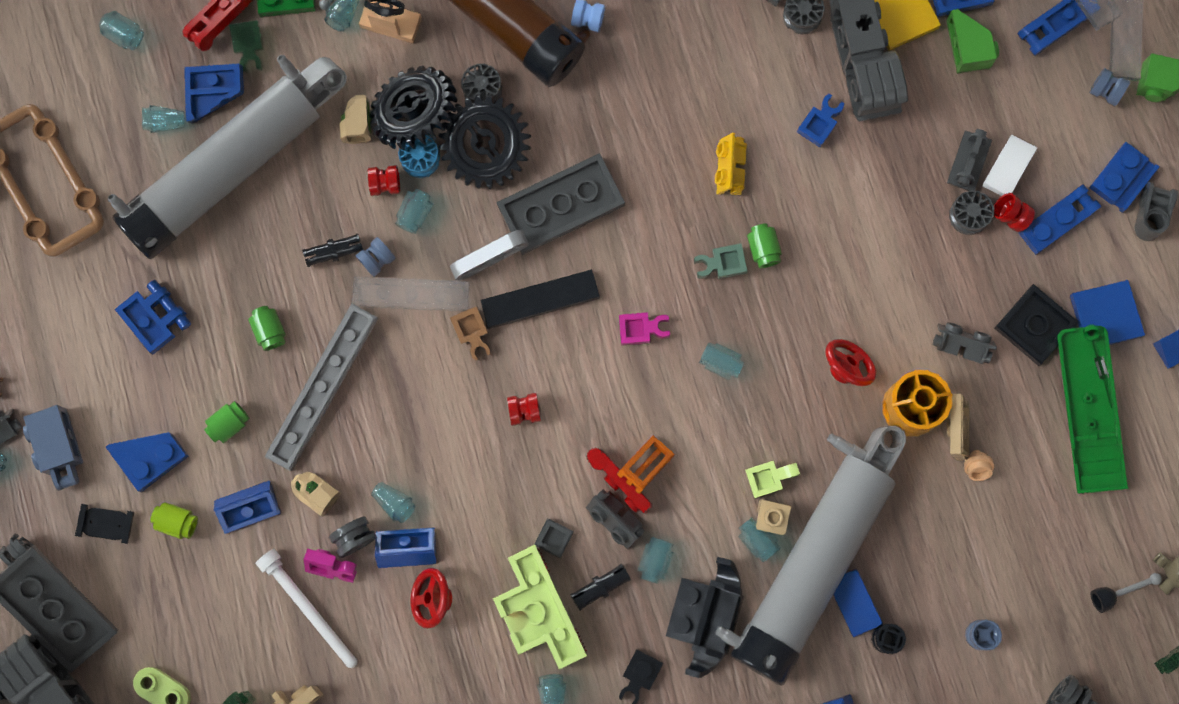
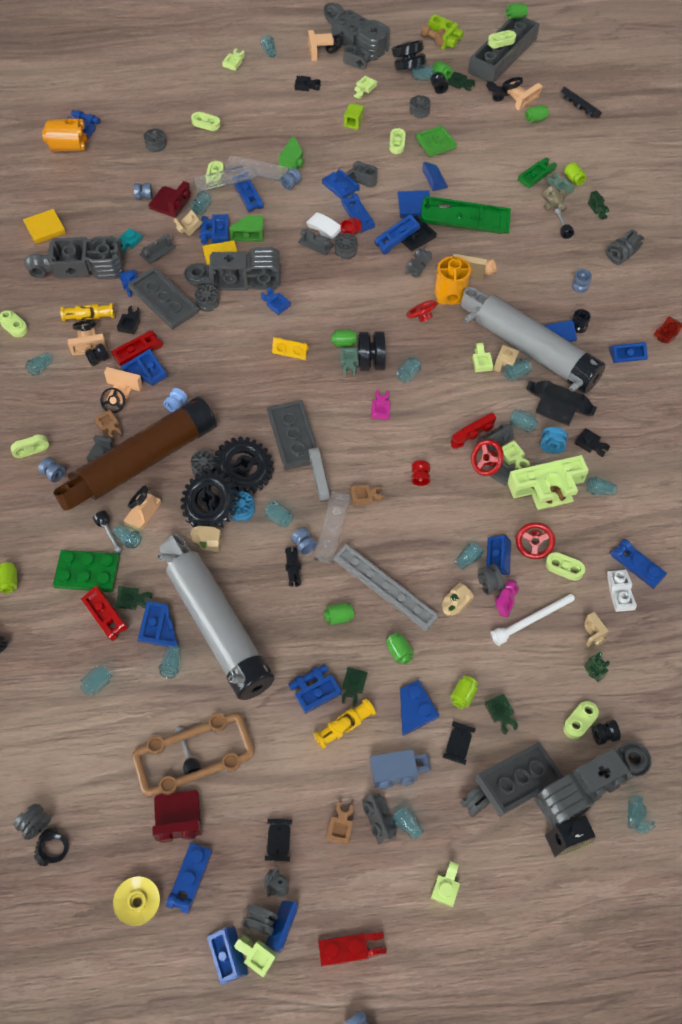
camera: 85 degrees left, 20 degrees down
(27, 181) = (190, 764): none -> black hinge
(106, 363) = (343, 724): none -> yellow piece
(156, 575) = (501, 710): none -> clear green plate
(170, 369) = (353, 683): none -> clear green plate
(246, 507) = (458, 647): blue slope -> none
(384, 180) = (253, 528): red wheel -> none
(398, 648) = (565, 565): none -> yellowish green plate
(540, 299) = (351, 455): black tile -> none
(572, 512) = (496, 459): none -> red piece
(588, 549) = (514, 455): none -> yellowish green plate
(600, 587) = (536, 451): black pin -> none
(622, 611) = (554, 440): none -> dark azure wheel
(633, 478) = (464, 414): orange tile -> none
(735, 292) = (374, 350): none -> black wheel
(1015, 295) = (397, 234): none -> blue plate

